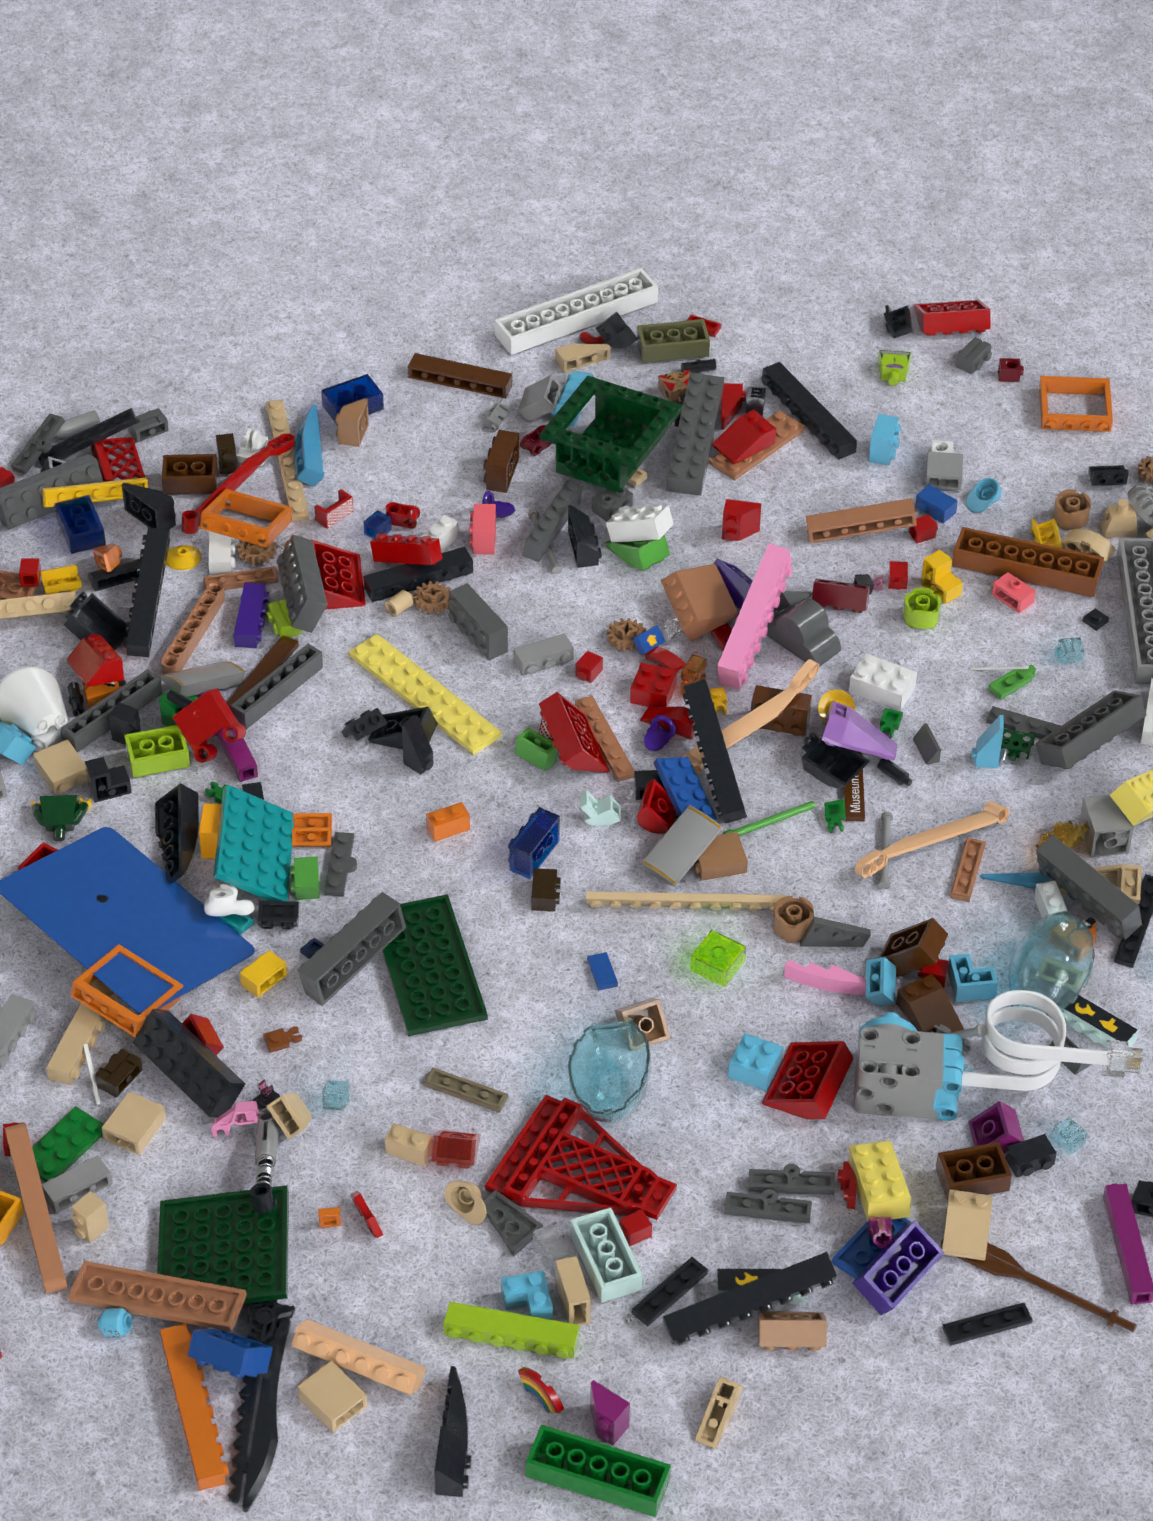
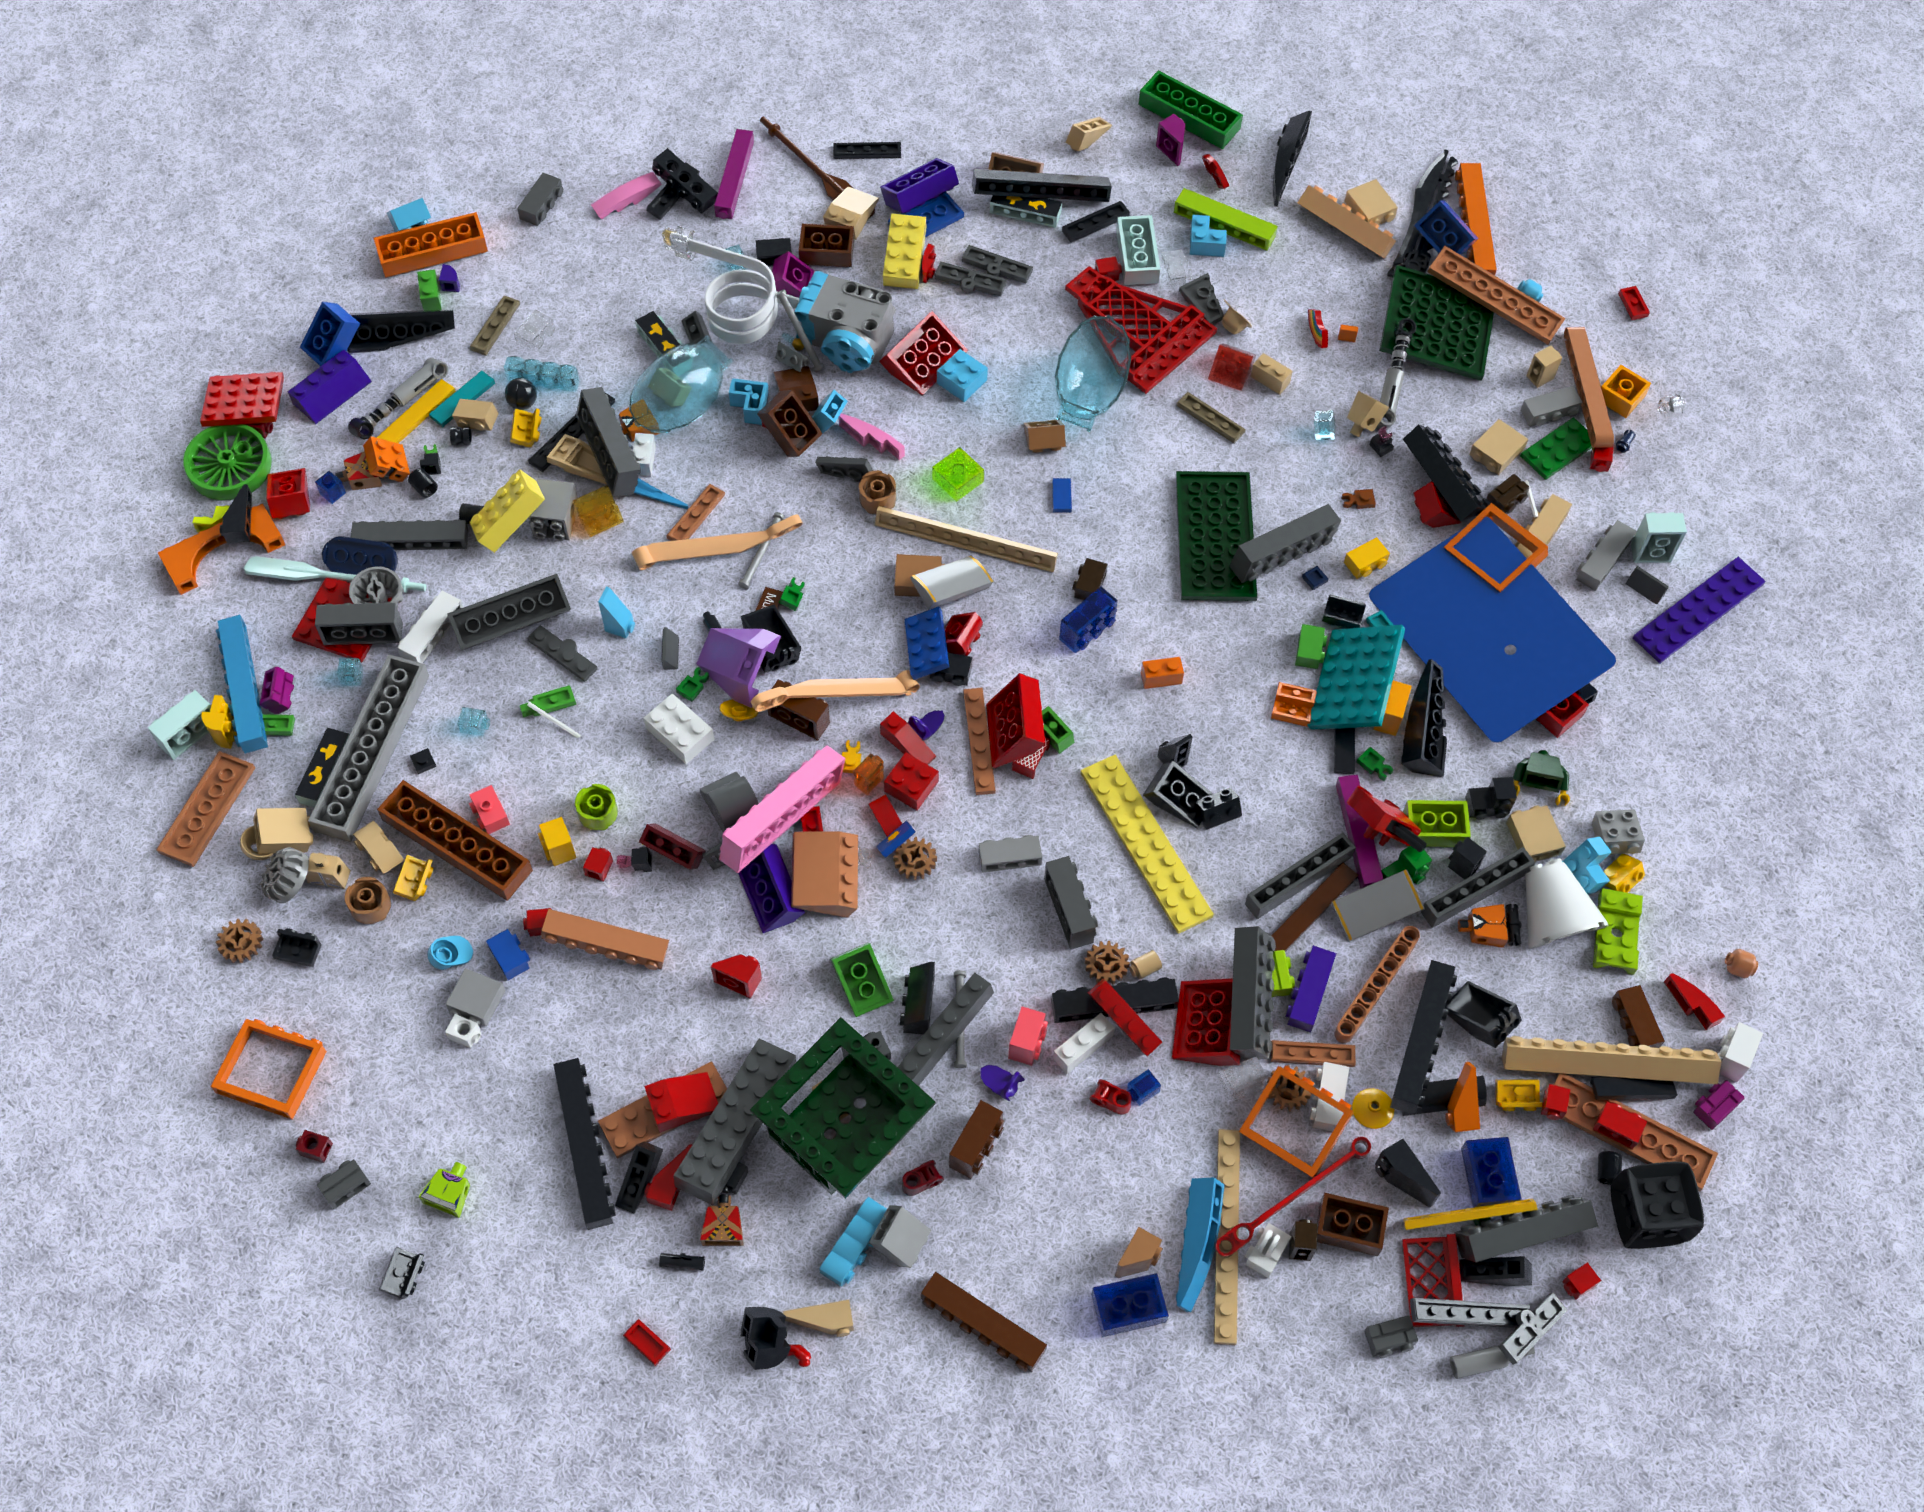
camera: 165 degrees left, 15 degrees up
(96, 661) = (1492, 943): red slope -> none
(222, 902) = (1406, 621): white head -> none
(240, 1114) = (1410, 417): bright pink piece -> none
(335, 512) = (1189, 1125): red panel -> none
(340, 864) = (1273, 661): dark grey hinge -> none
(492, 420) = (965, 1232): light grey hinge -> none
(573, 1291) = (1173, 224): tan brick -> none
(575, 311) = (799, 1399): white brick -> none
(589, 666) = (968, 825): red brick -> none
(600, 812) = (1013, 650): light aqua brick -> none
(639, 523) = (852, 989): white brick -> none
(673, 341) = (698, 1305): olive brick -> none
(715, 752) = (883, 670): black brick -> none
(772, 819) = (899, 600): bright green bar -> none
(880, 1230) = (923, 205): magenta piece -> none
(884, 439) = (521, 1055): medium azure brick -> none
(953, 317) = (330, 1267): red slope -> none
(1015, 745) = (585, 628): dark green piece -> none

